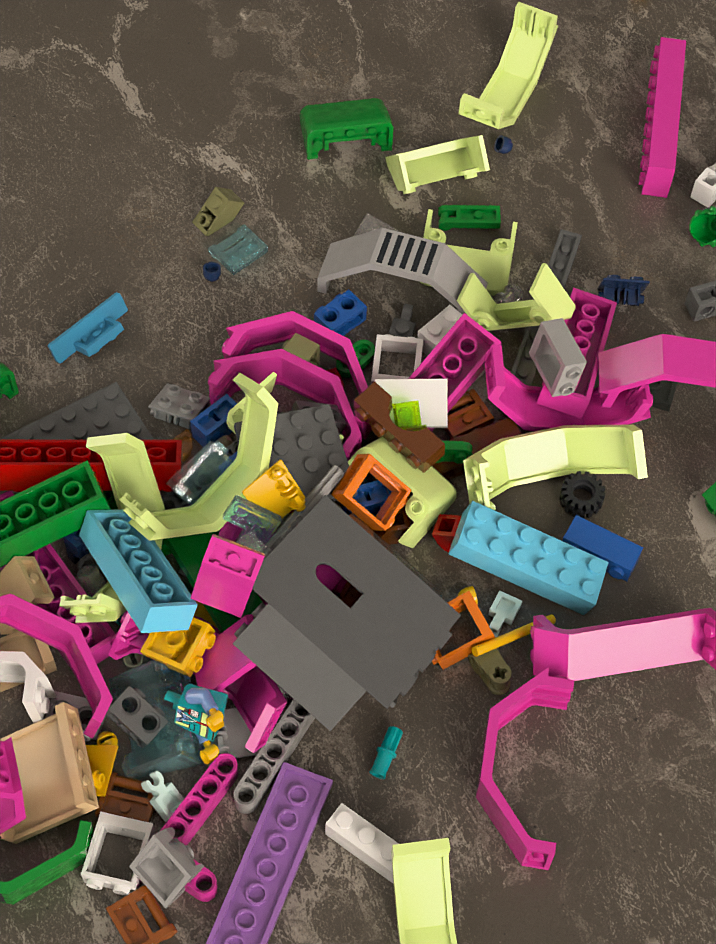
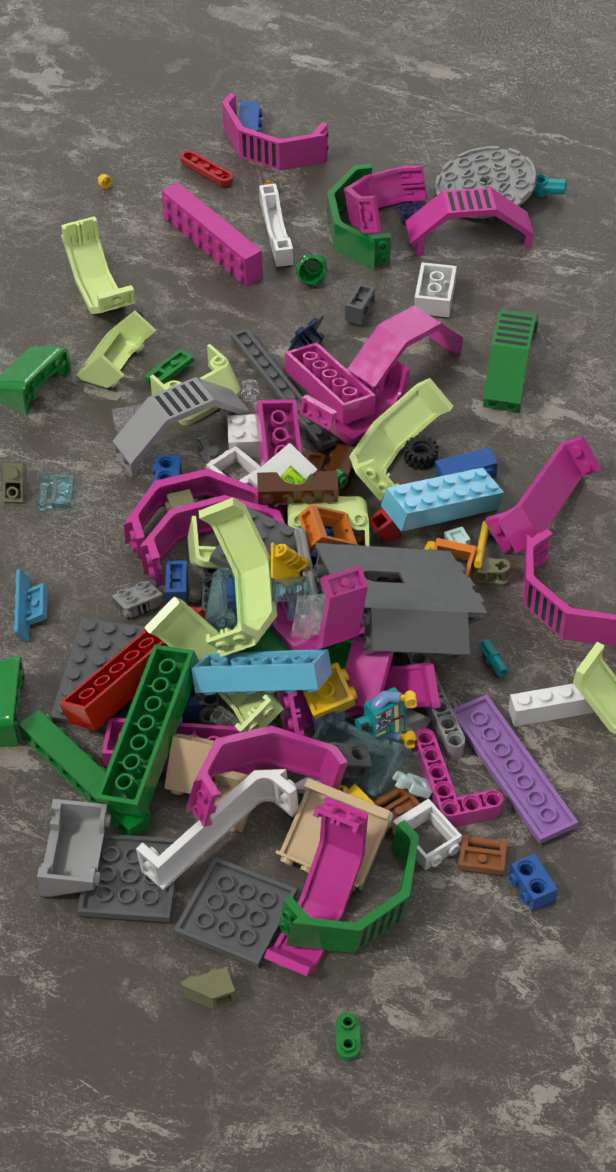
camera: 45 degrees left, 10 degrees down
(166, 866) = (472, 802): light grey brick -> none
(211, 271) = (56, 515): dark blue hinge -> none
(548, 304) = (279, 382): yellowish green windscreen -> none
(555, 345) = (342, 368): light grey window -> none

